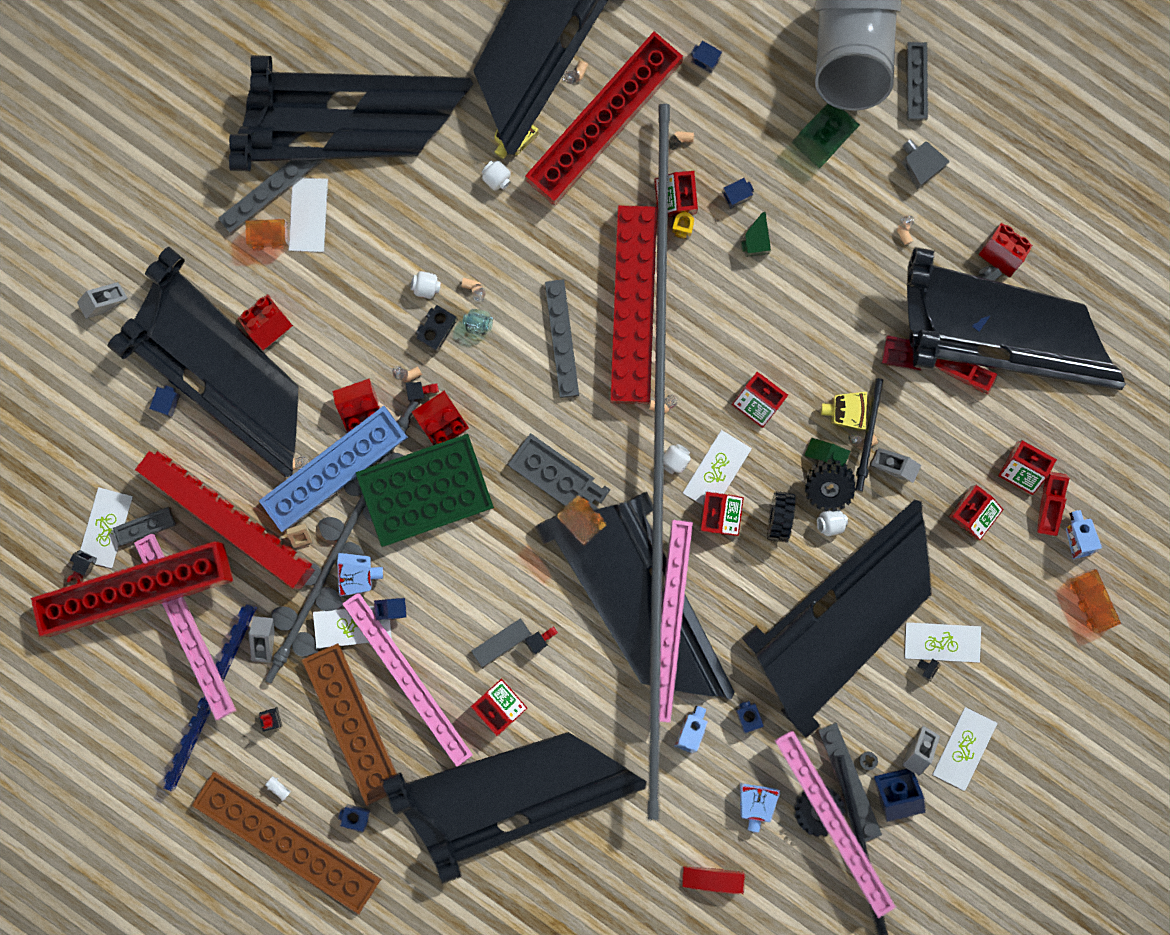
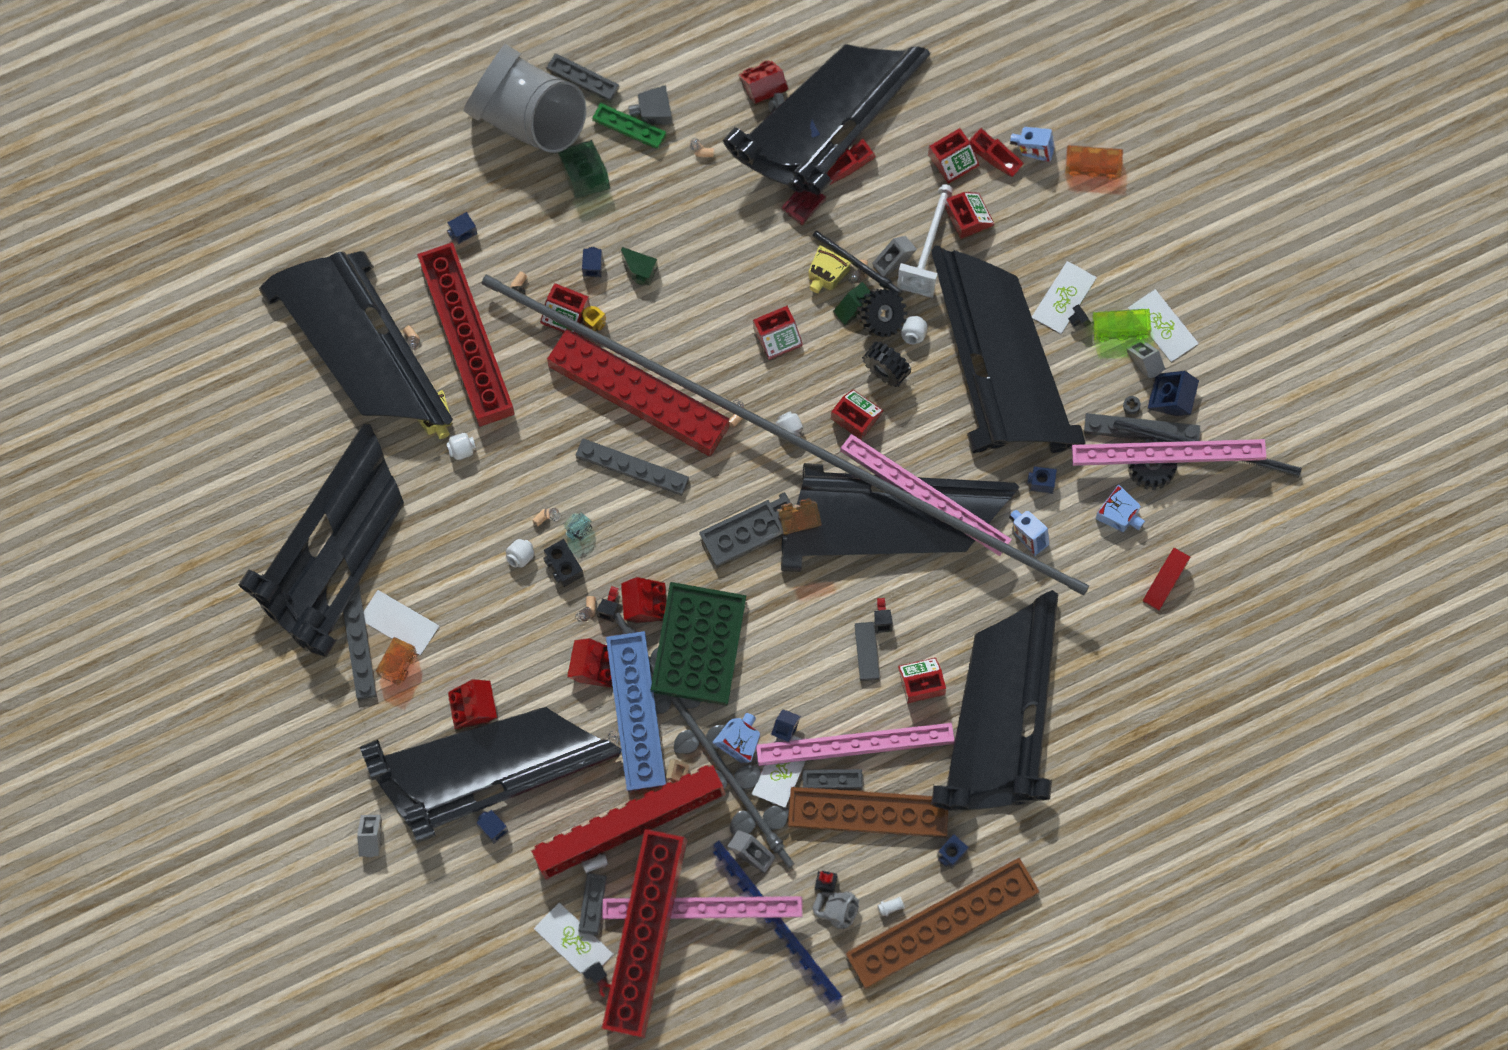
camera: 60 degrees left, 15 degrees down
(184, 513) = (595, 863): none -> white pin
(249, 745) = (839, 910): none -> light grey piece
(366, 675) = (833, 779): none -> dark grey tile
(717, 467) = (815, 398): white sticker -> none
(882, 500) = (917, 279): none -> white tile
(891, 151) = (629, 126): none -> green plate
(942, 711) = (1121, 324): none -> clear neon green brick

